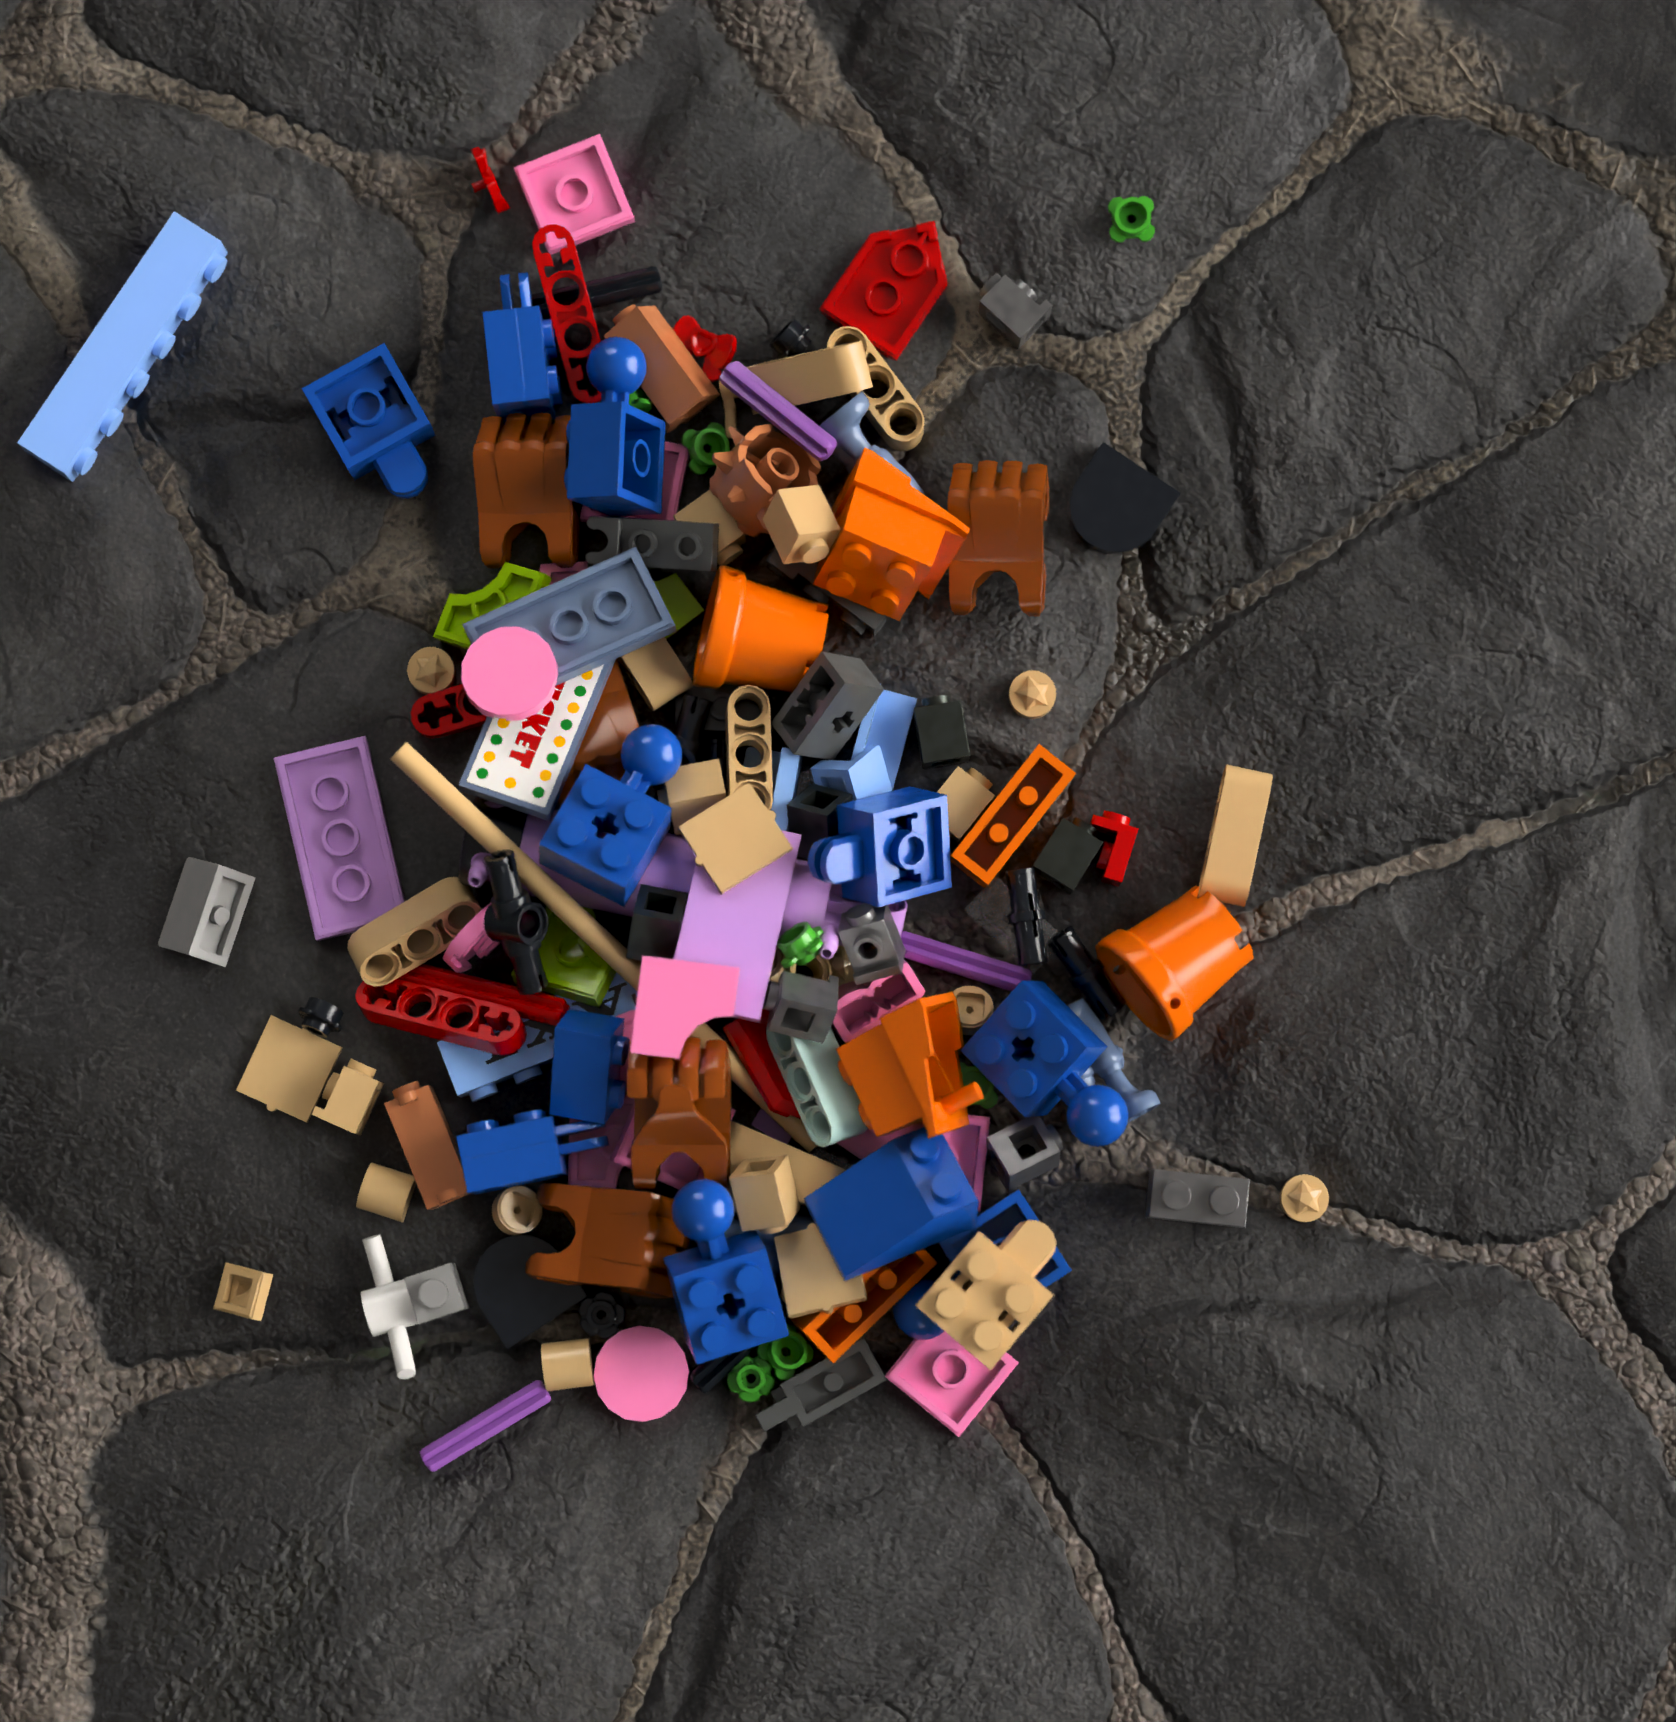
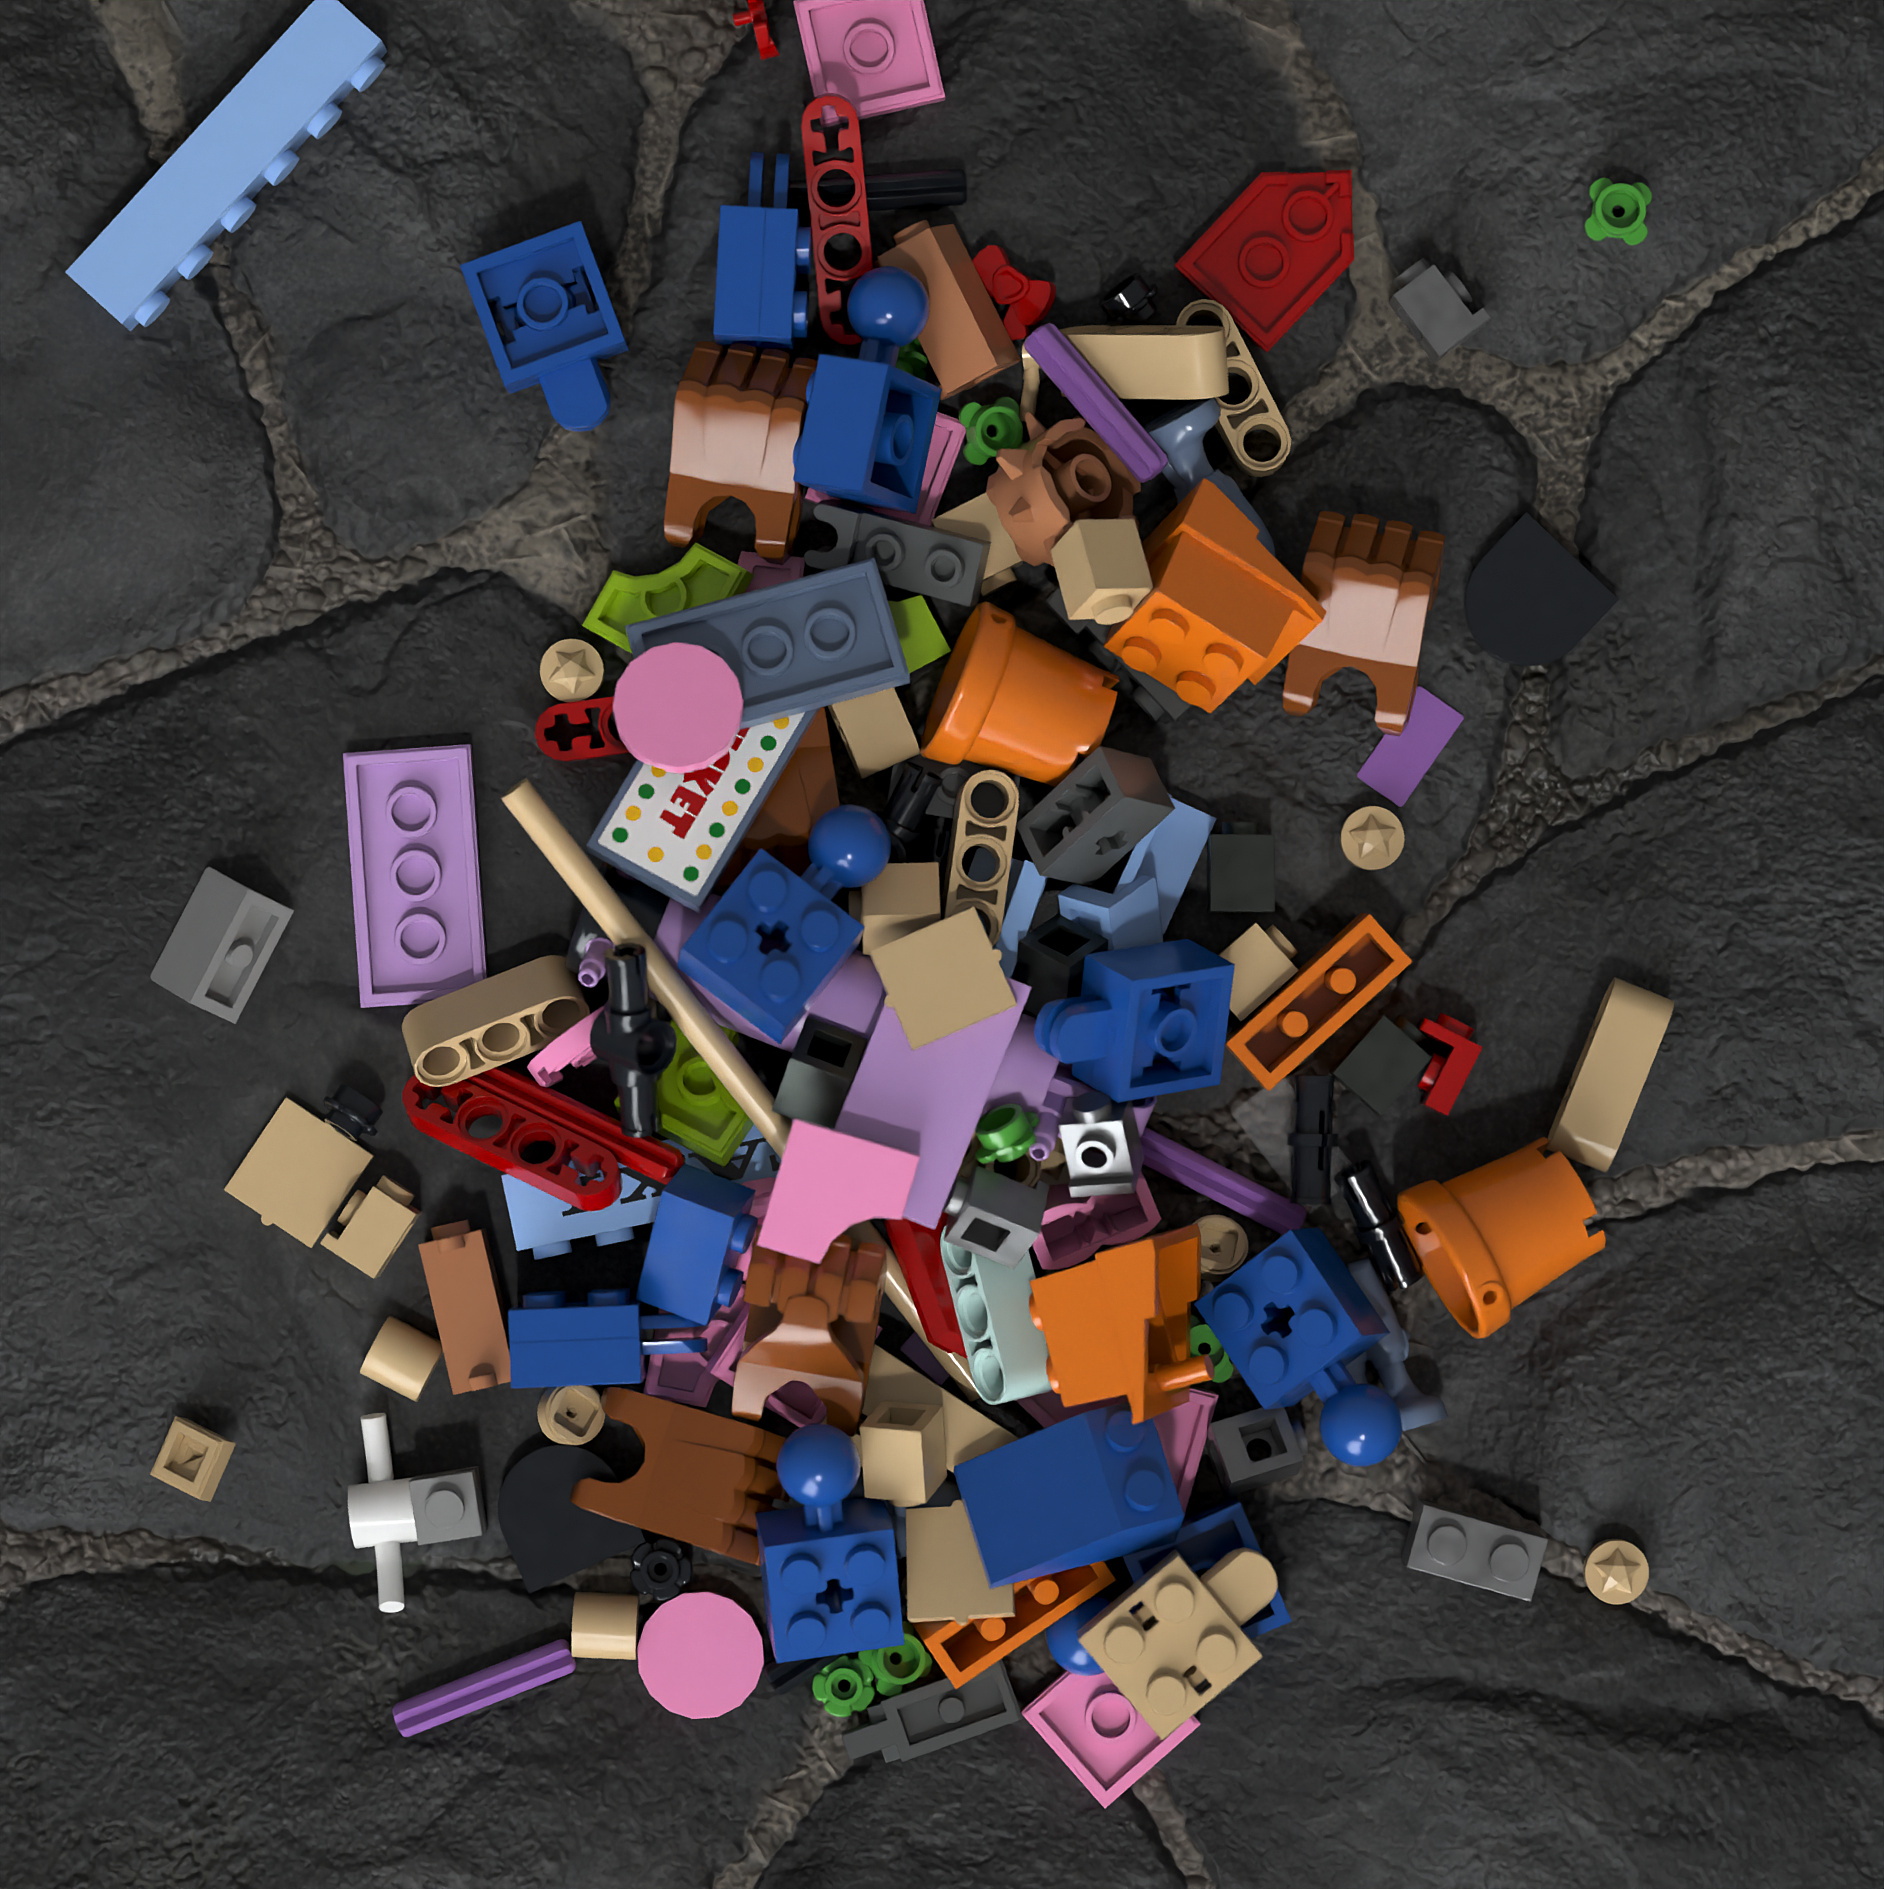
camera: 10 degrees right, 5 degrees up
(1047, 632) = (1402, 761): none -> medium lavender sticker

